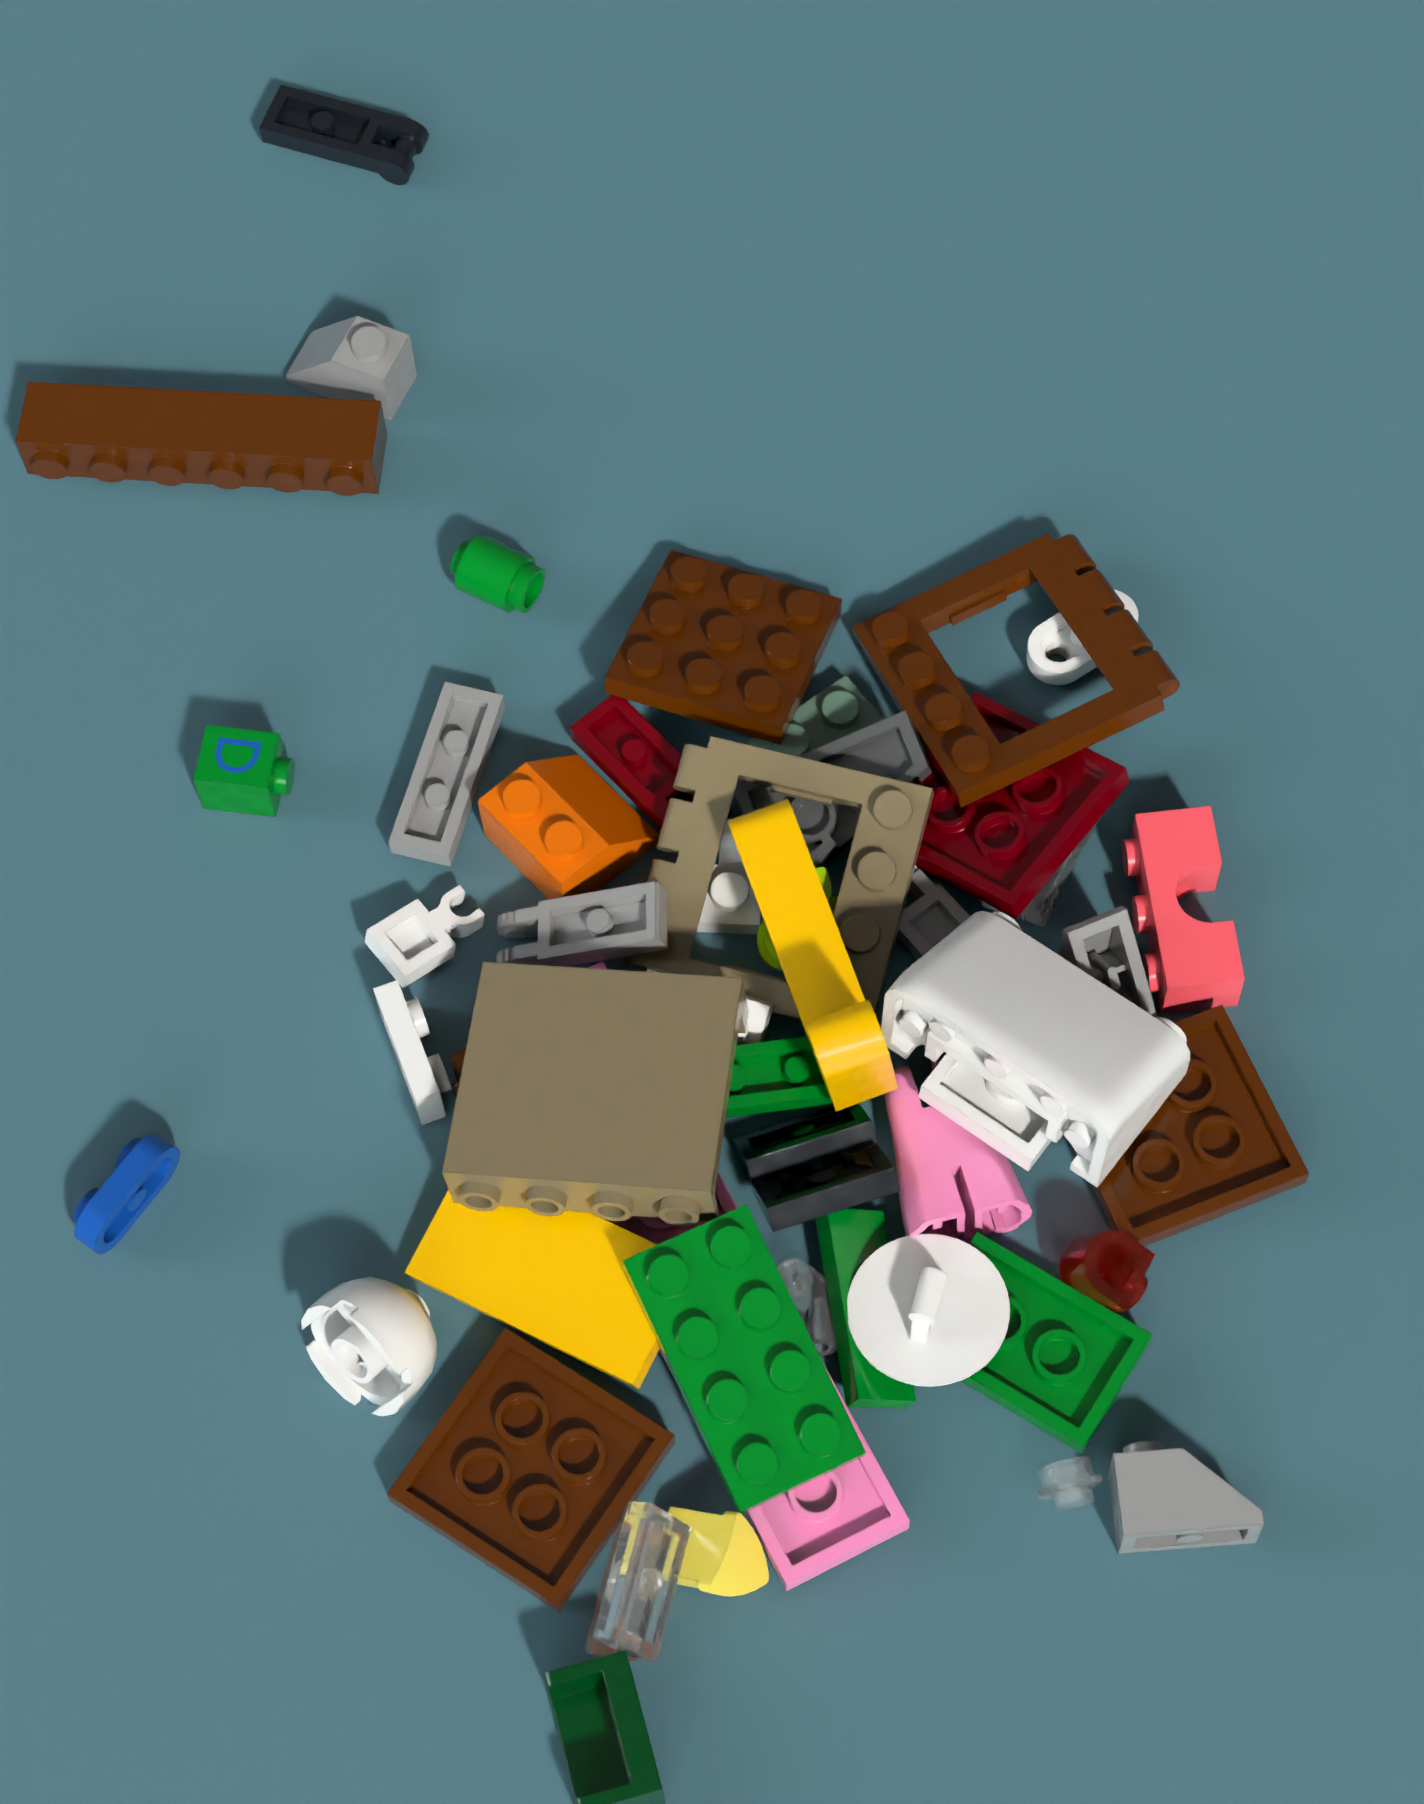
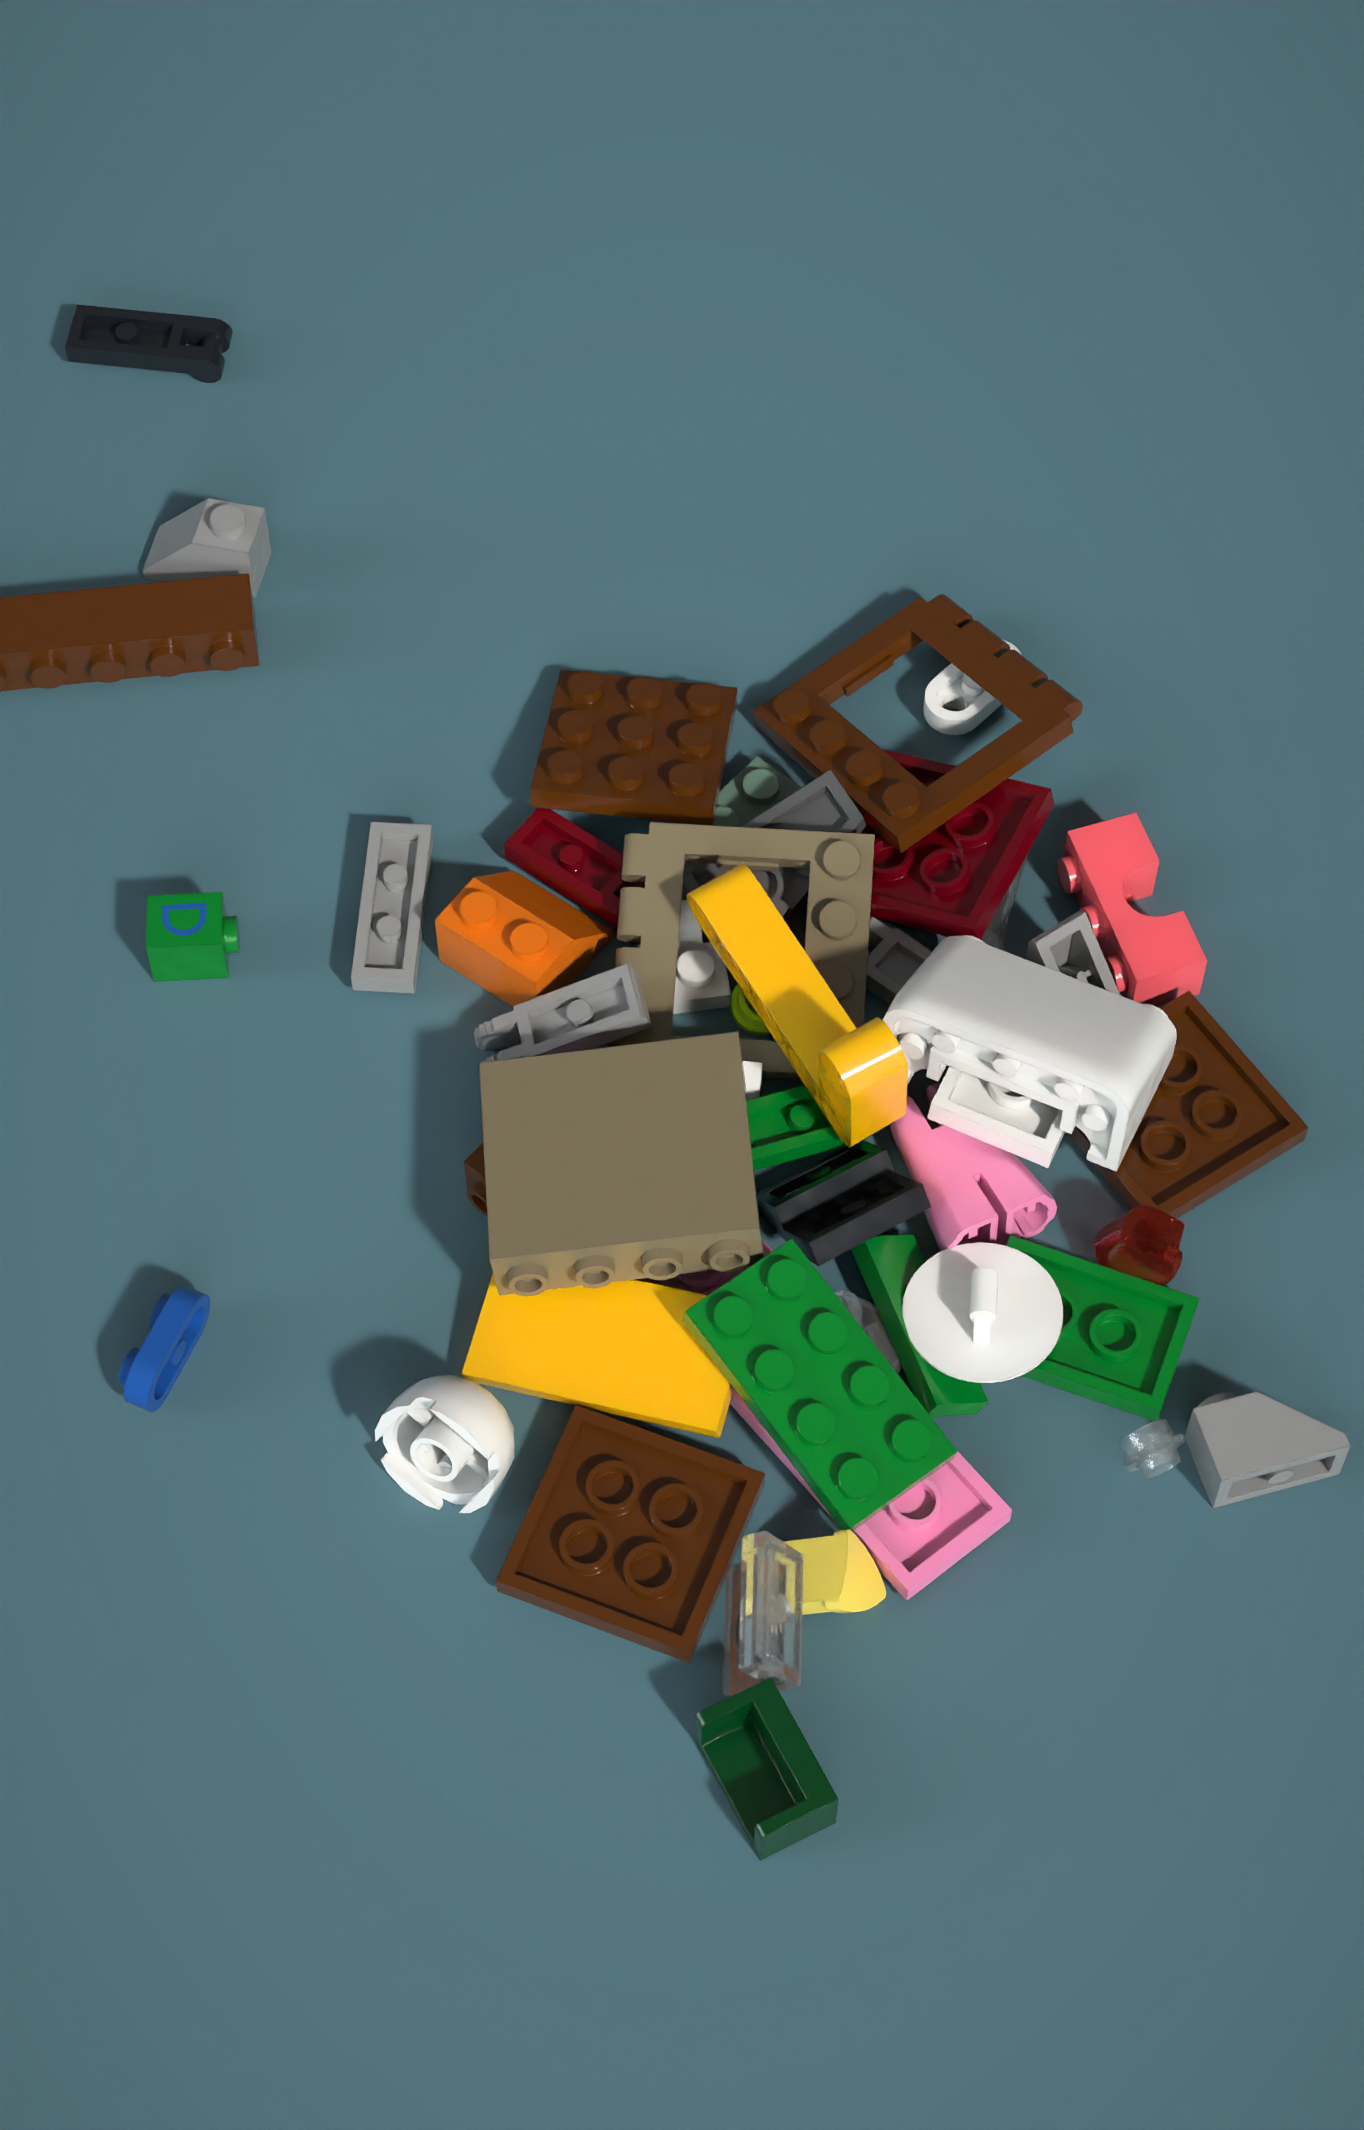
camera: 15 degrees left, 5 degrees down
(420, 940) = (400, 1064): white plate -> none
(422, 1074) = (409, 1149): white plate -> none
(497, 574) = (398, 717): green brick -> none

